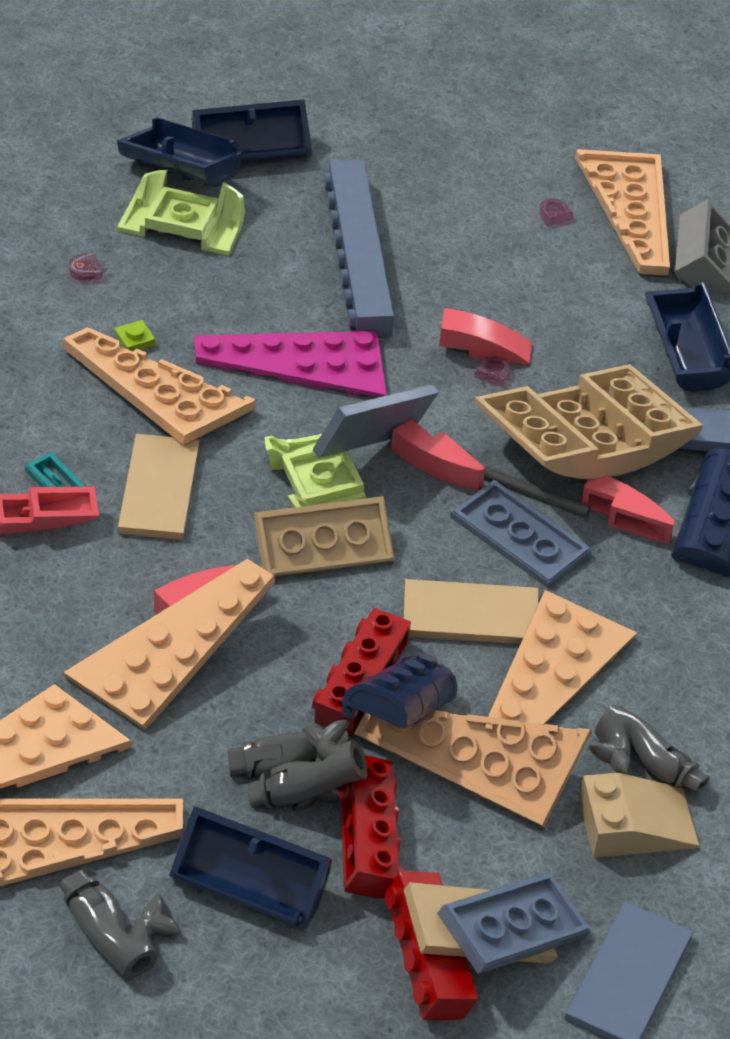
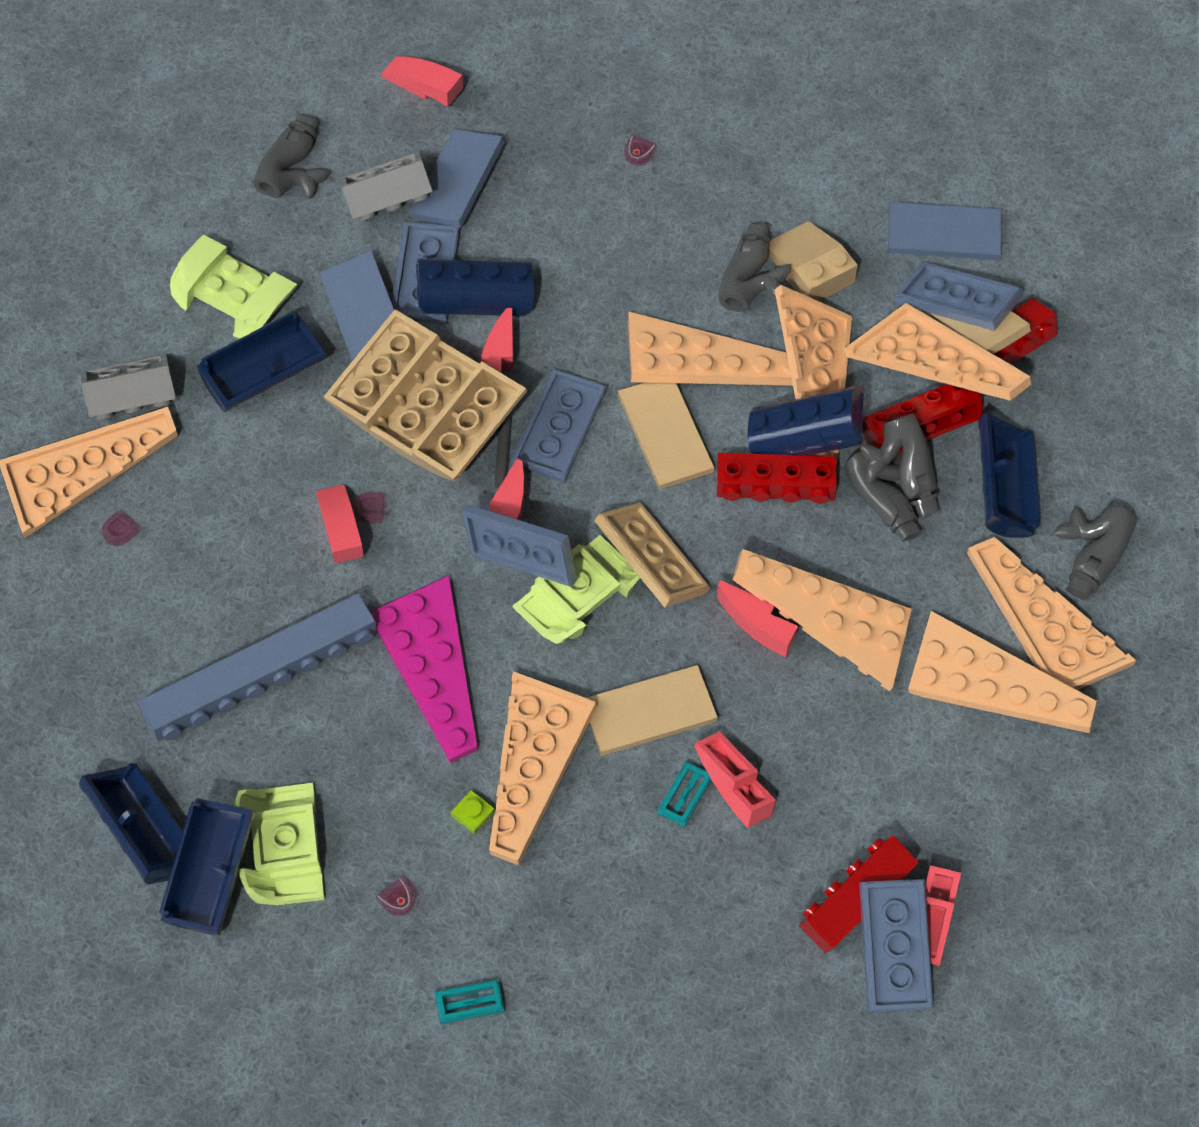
camera: 110 degrees left, 15 degrees up
(440, 847) = (930, 350): none -> light nougat wing

